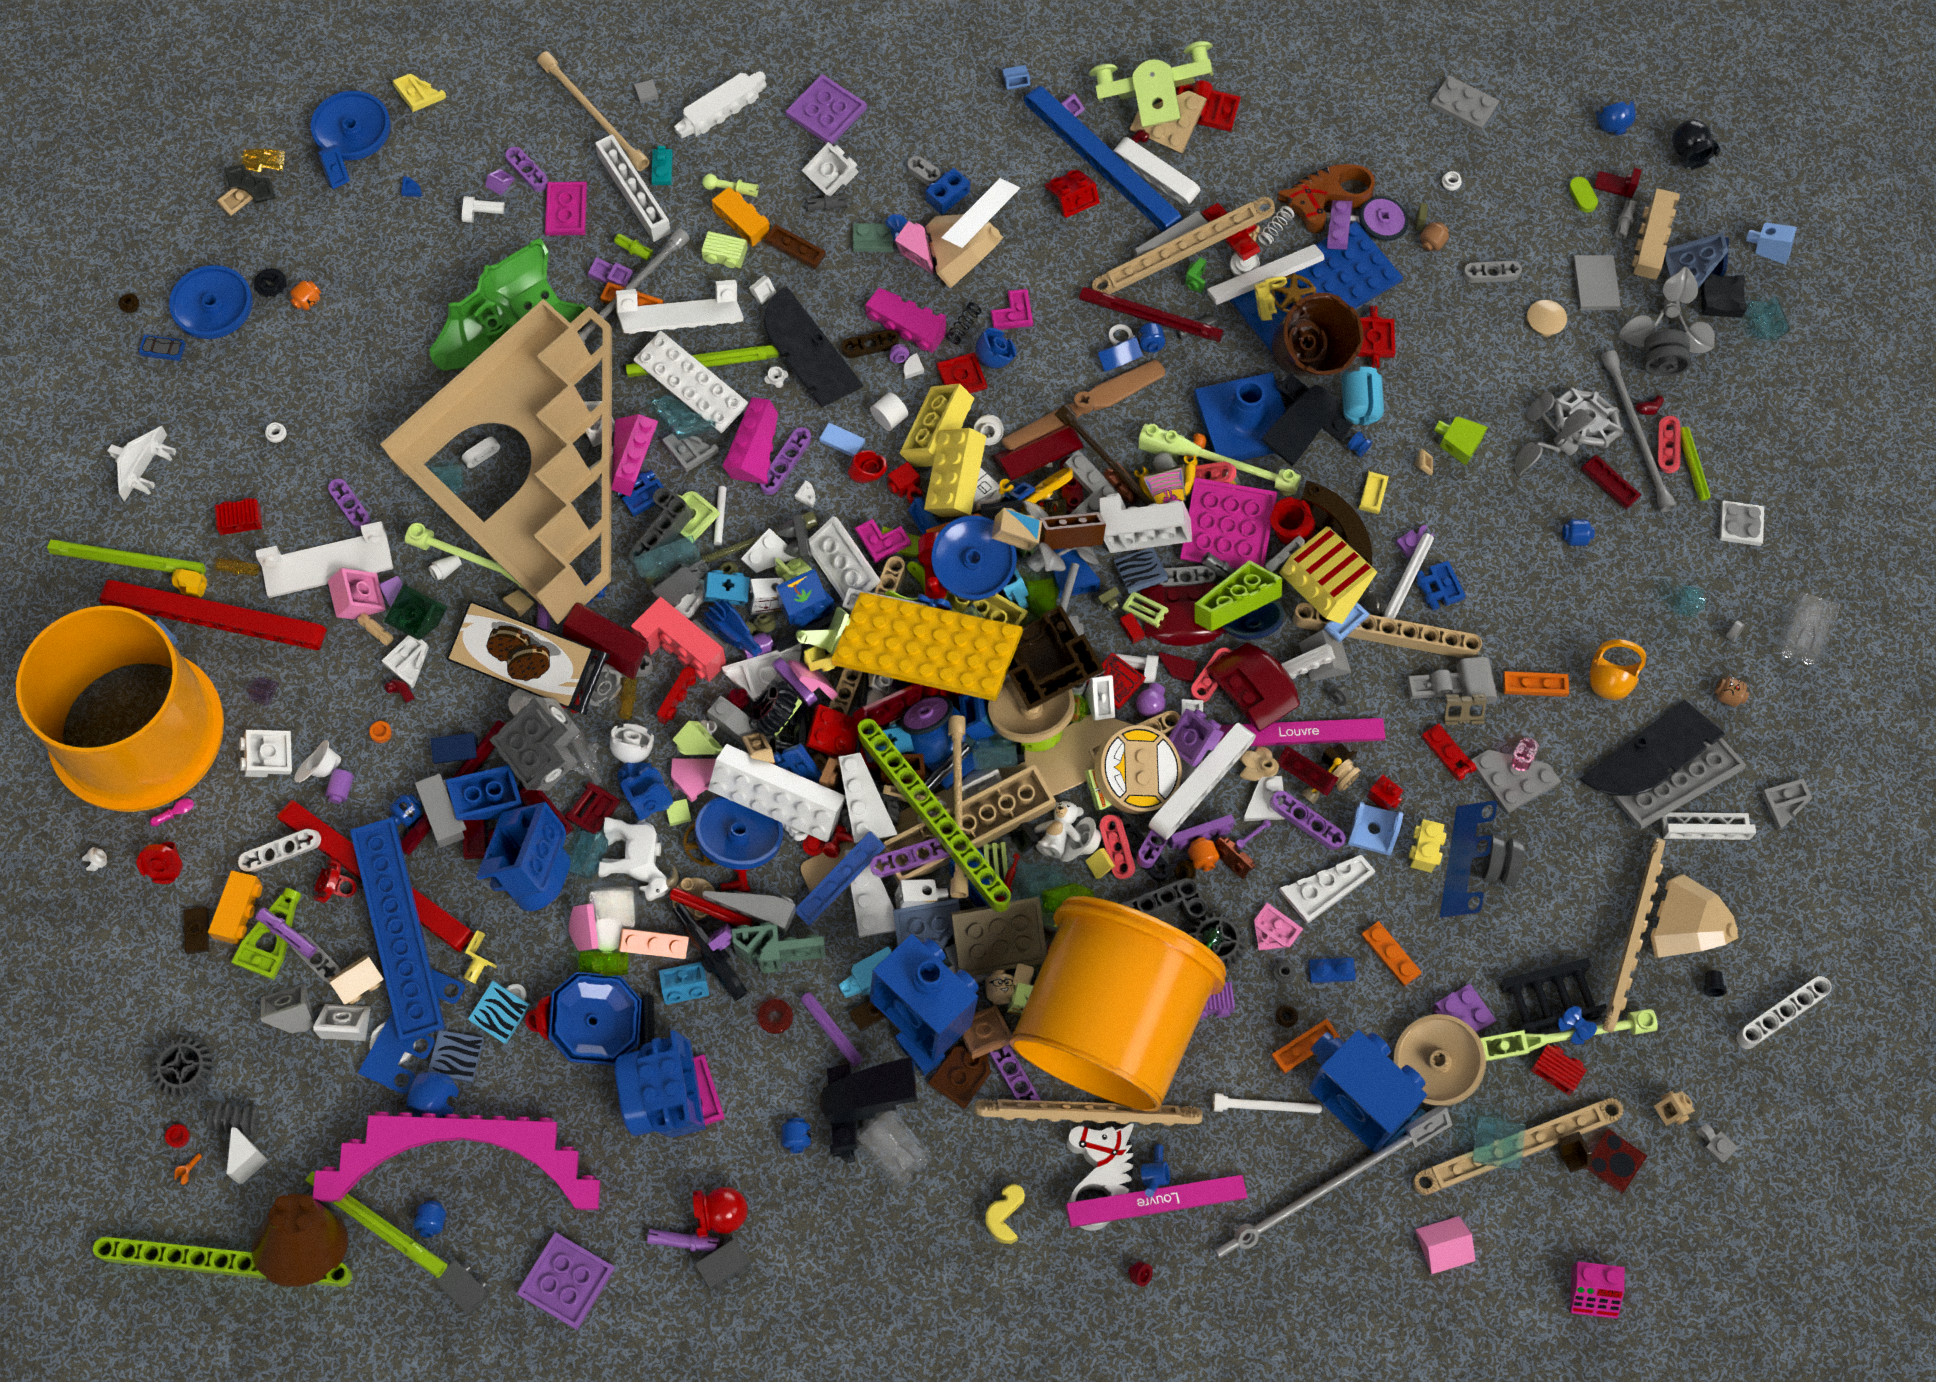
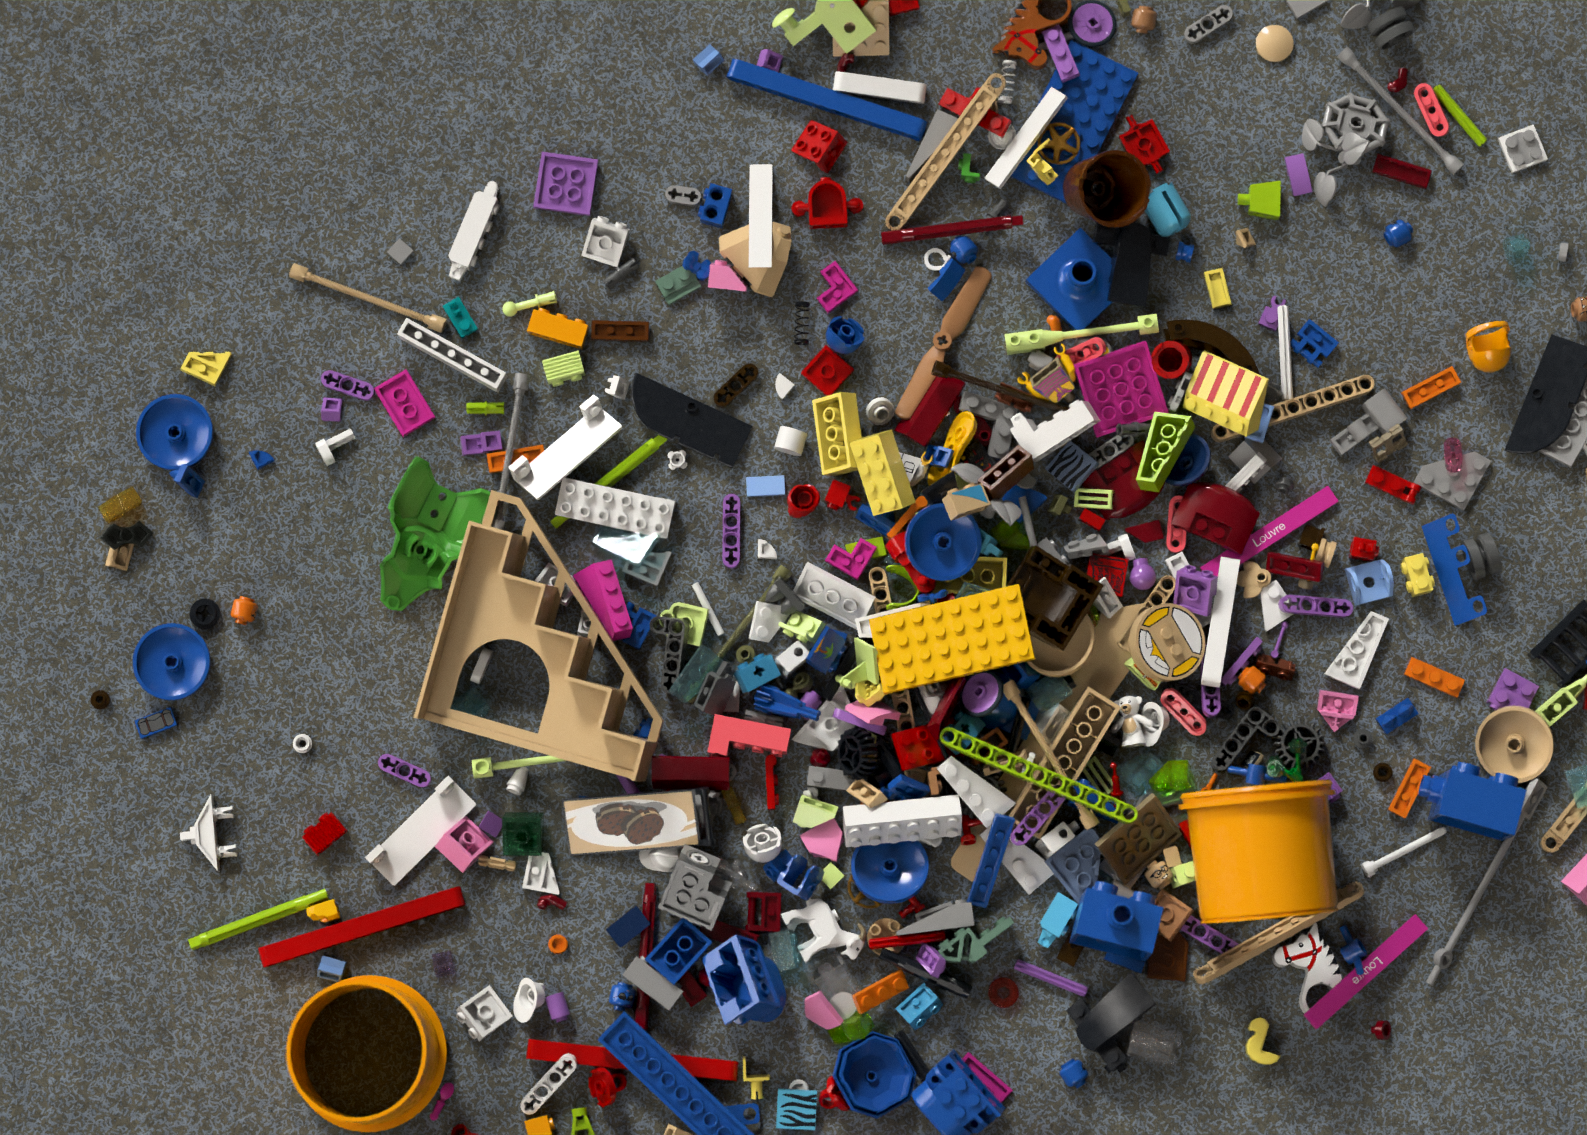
camera: 25 degrees left, 15 degrees up
(237, 567) = (352, 875): clear yellow axle -> none
(517, 602) = (595, 777): tan slope -> none
(753, 443) = (698, 532): dark pink wedge -> none
(813, 845) = (951, 844): red plate -> none
(898, 353) = (765, 382): medium lavender plate -> none
(907, 319) = (753, 348): dark pink wedge -> none
(1048, 241) = (827, 205): none -> red piece
(1100, 863) = (1177, 731): light yellow tile -> none
(1118, 646) = (1085, 547): none -> light grey wing
(1507, 435) = (1298, 174): none -> medium lavender slope

